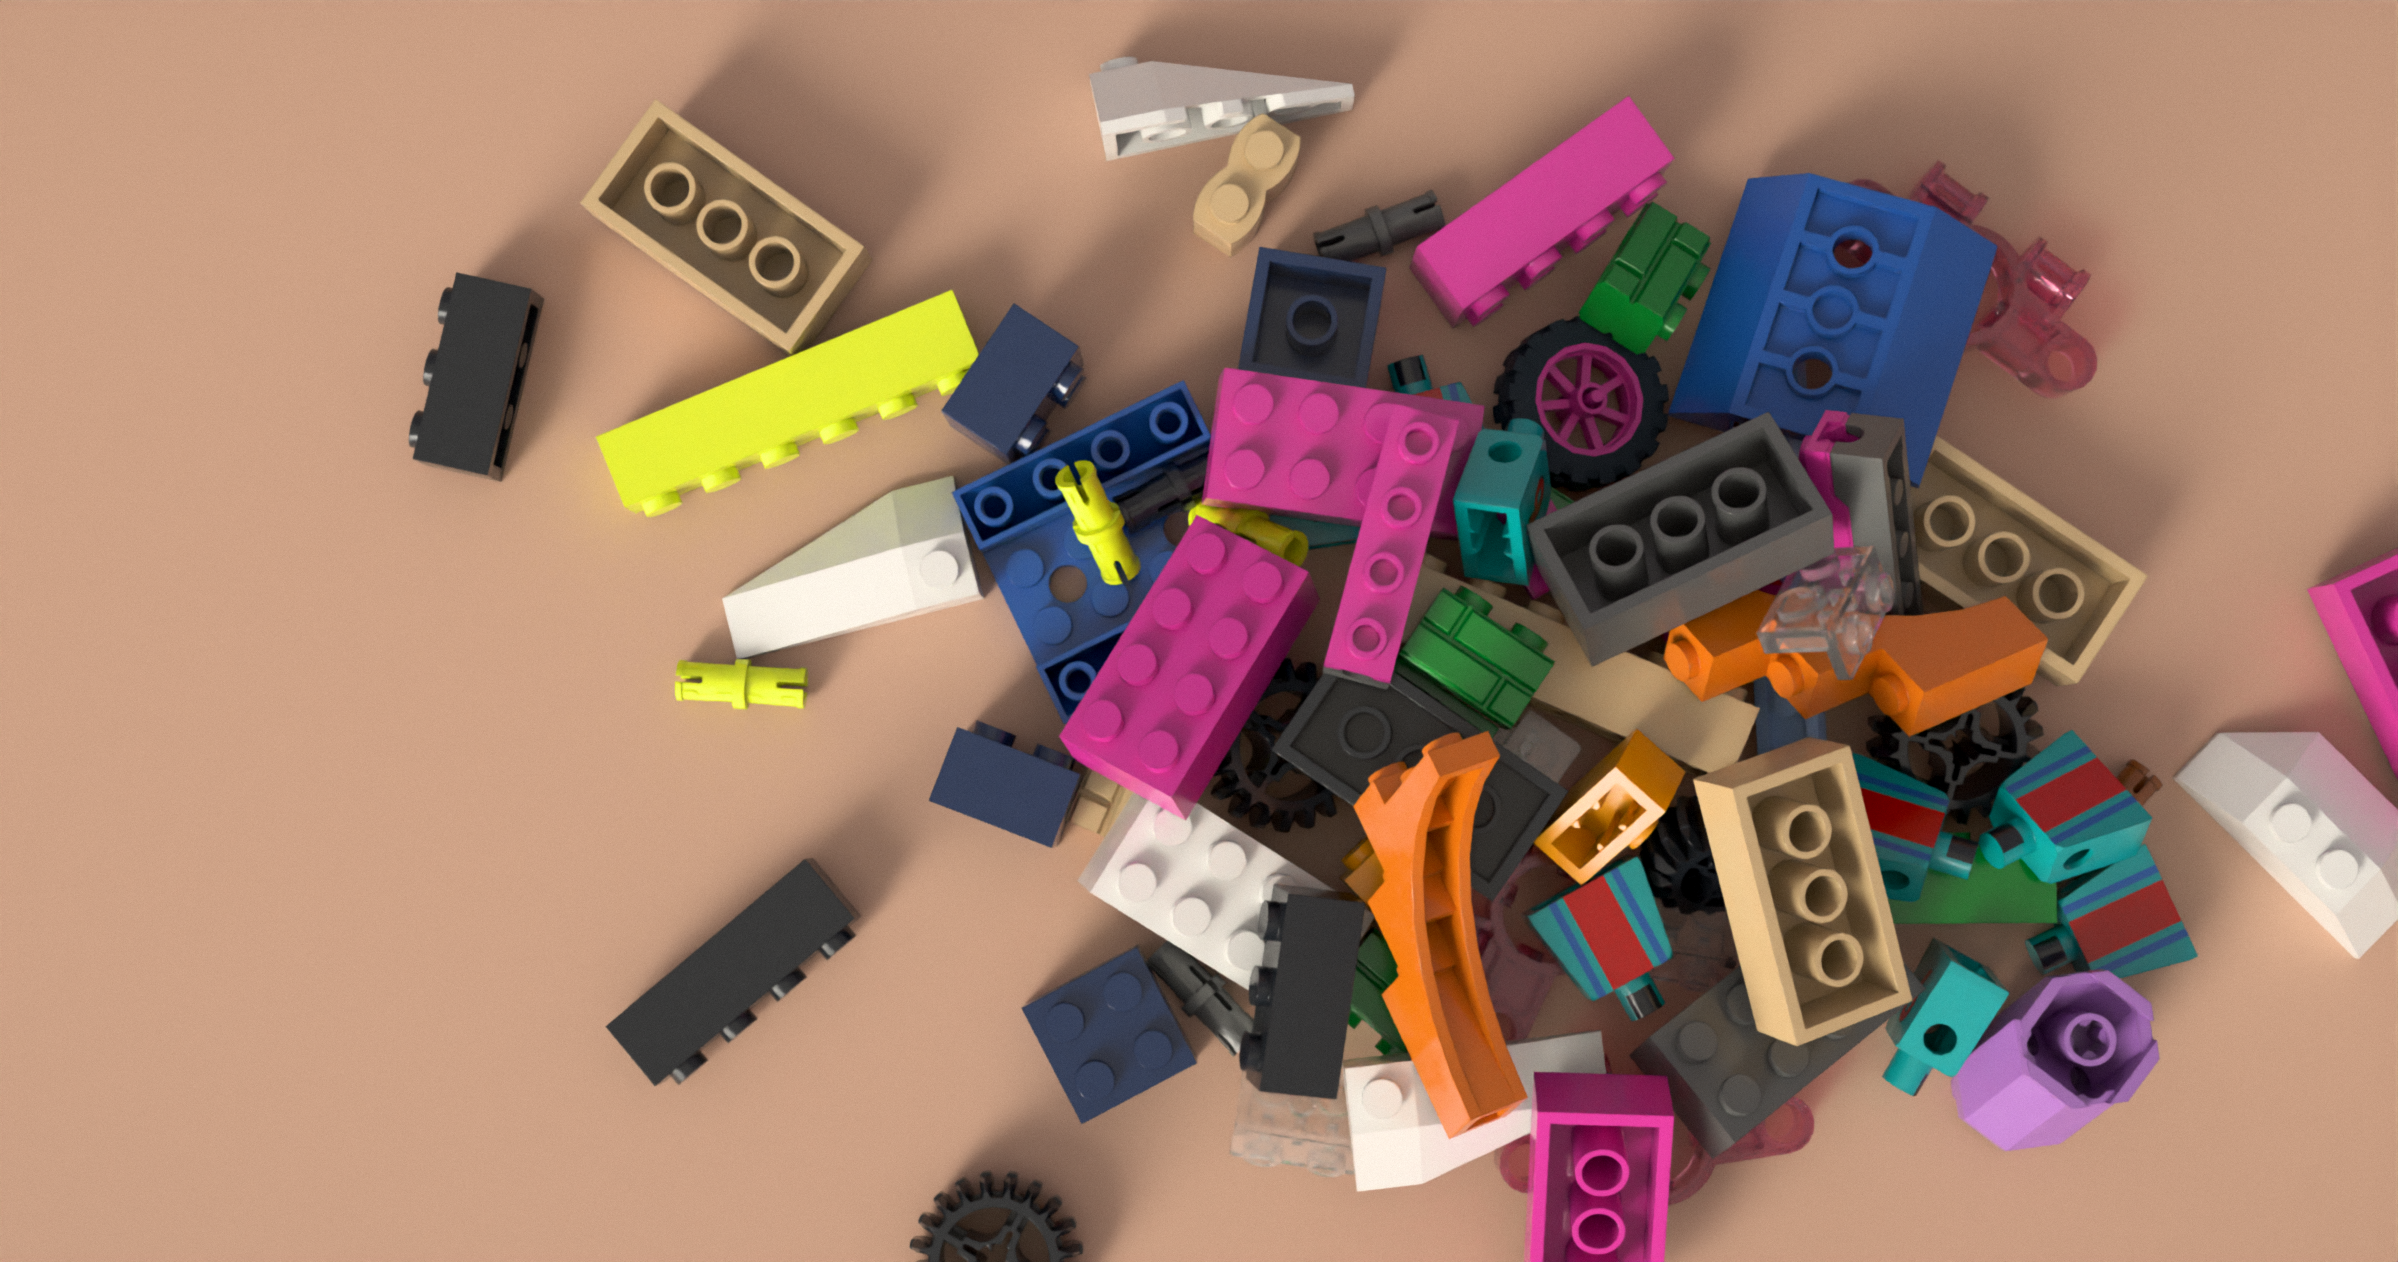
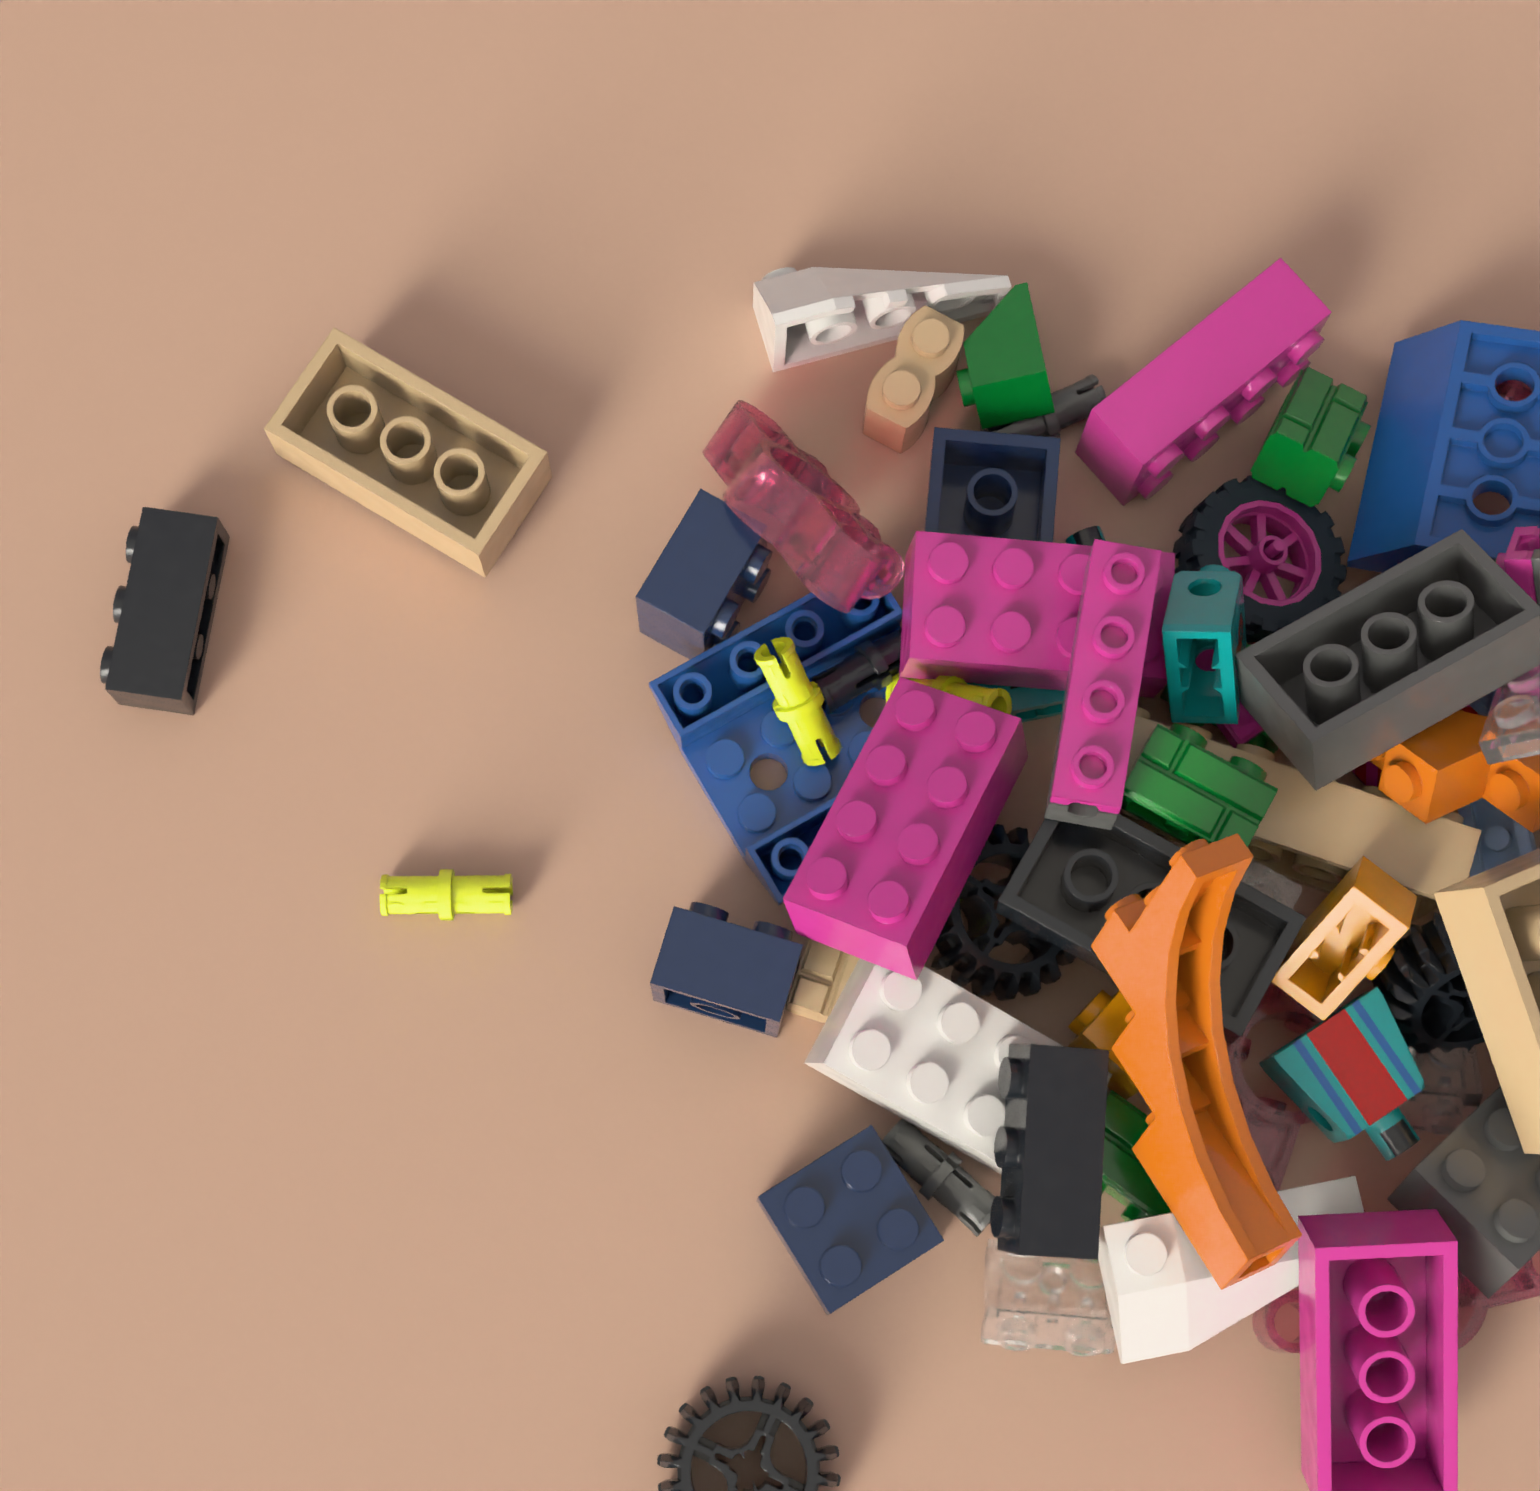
camera: 10 degrees left, 10 degrees down
(734, 972) = (454, 1188): black brick -> none
(790, 404) = (479, 616): neon yellow brick -> none
(873, 569) = (572, 773): white wedge -> none
(1113, 329) = (801, 510): none -> clear pink piece
(1343, 176) = (1006, 364): none -> green slope

